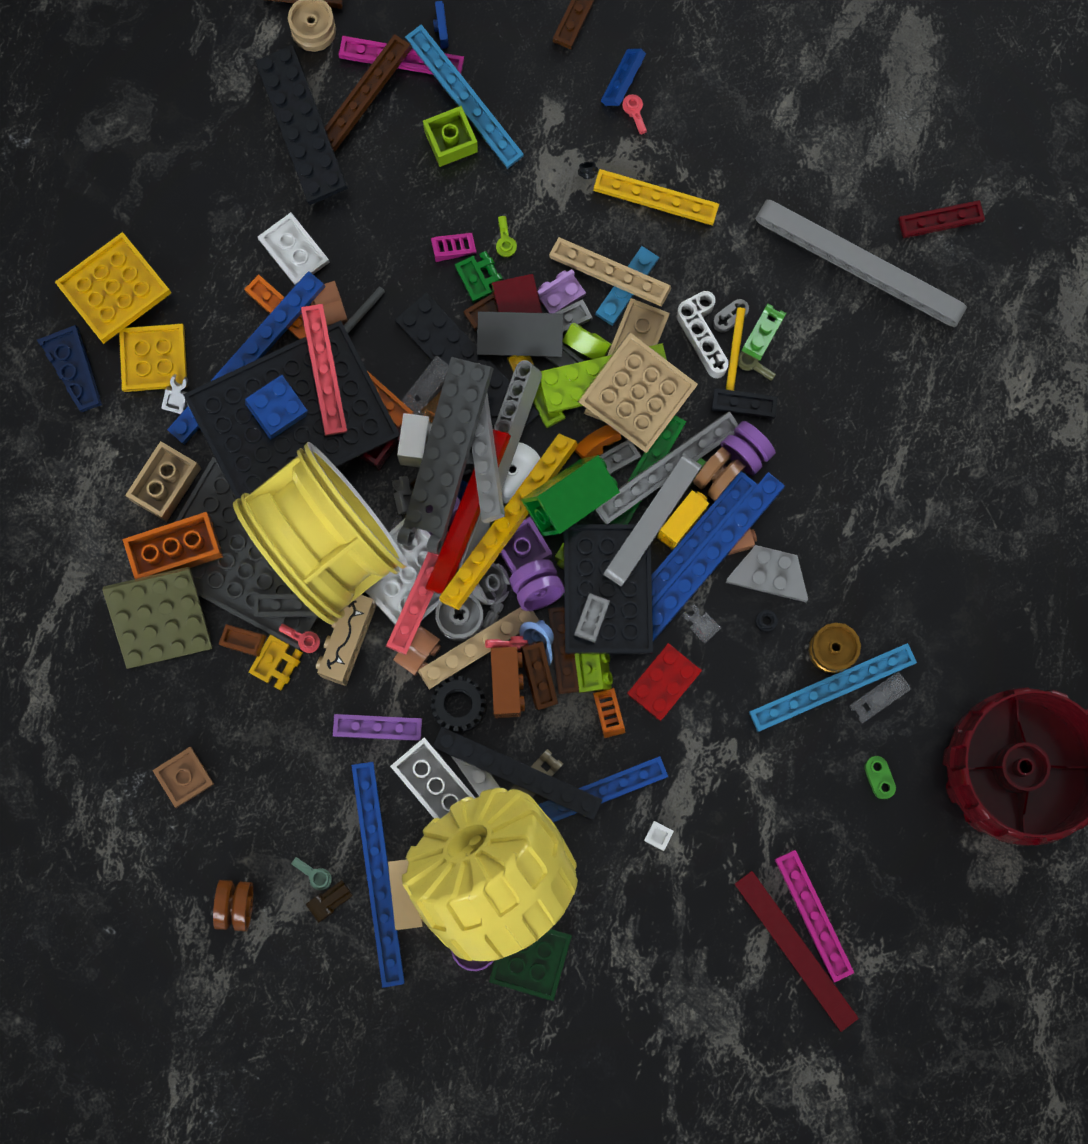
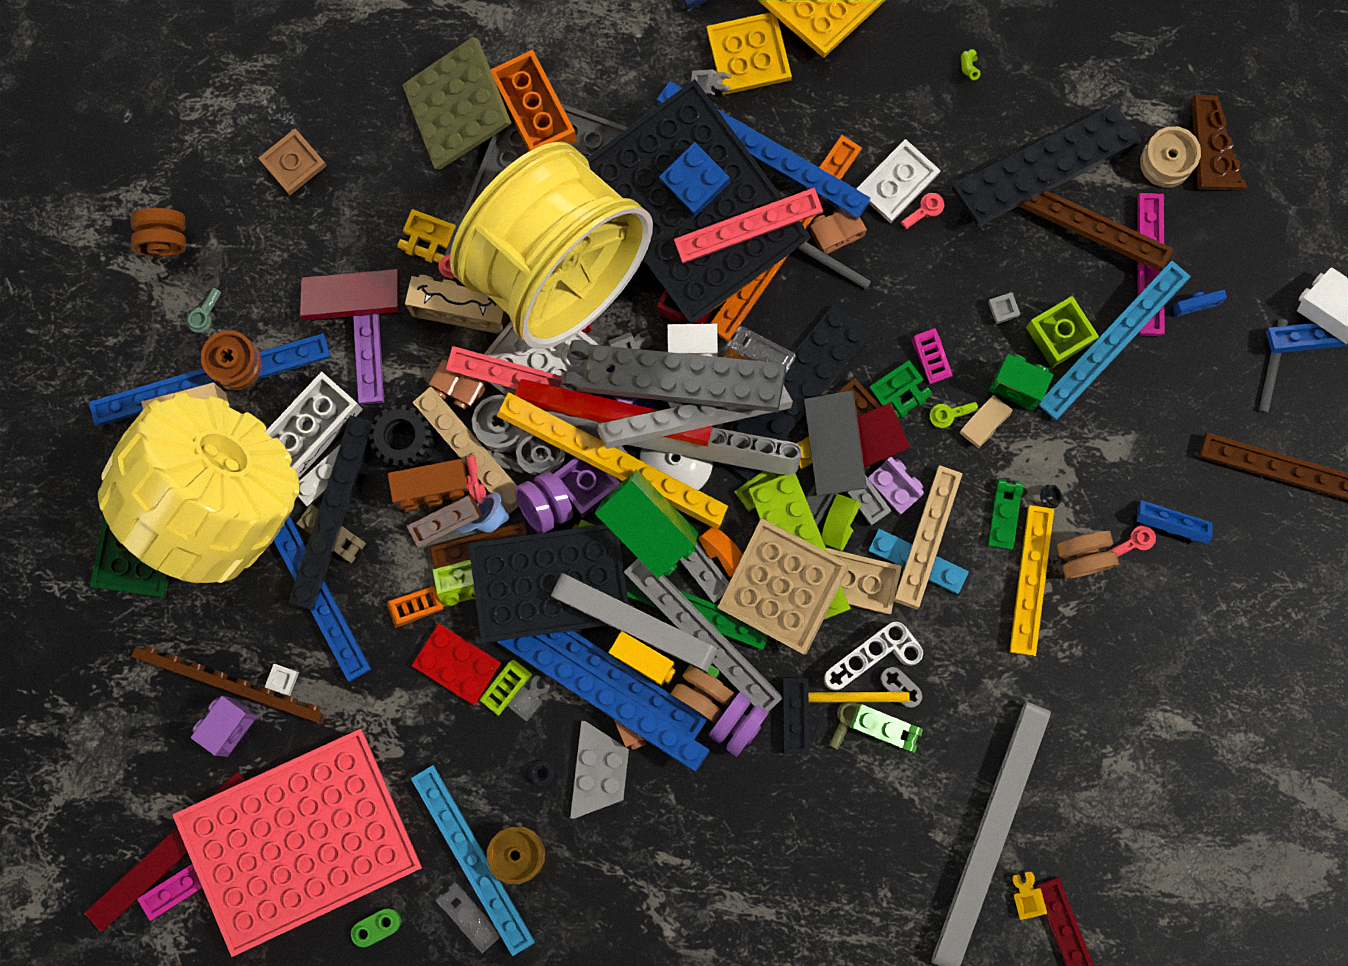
camera: 90 degrees right, 0 degrees up
(163, 481) = (608, 85): tan brick -> none
(193, 175) = (967, 67): none -> lime arm
(242, 640) = (446, 198): dark orange tile -> none
(319, 737) = (349, 294): none -> dark red tile
(320, 226) = (930, 206): none -> coral plate
(325, 903) = (173, 329): dark brown piece -> none
(353, 845) = (217, 358): none -> dark orange wheel
(420, 181) = (1004, 308): none -> light grey plate
(489, 175) = (1021, 381): none -> green brick
(517, 211) = (986, 421): none -> tan slope
(592, 617) = (509, 567): light grey plate -> none
(597, 209) = (1005, 515): none -> green plate
(643, 147) = (1087, 553): none -> medium nougat wheel
(652, 890) = (220, 680): none -> reddish brown plate
(683, 624) = (518, 670): none -> lime slope
(695, 888) = (223, 726): none -> medium lavender brick
(801, 835) = (296, 842): none -> coral plate
(916, 242) = (1029, 900): none -> yellow plate

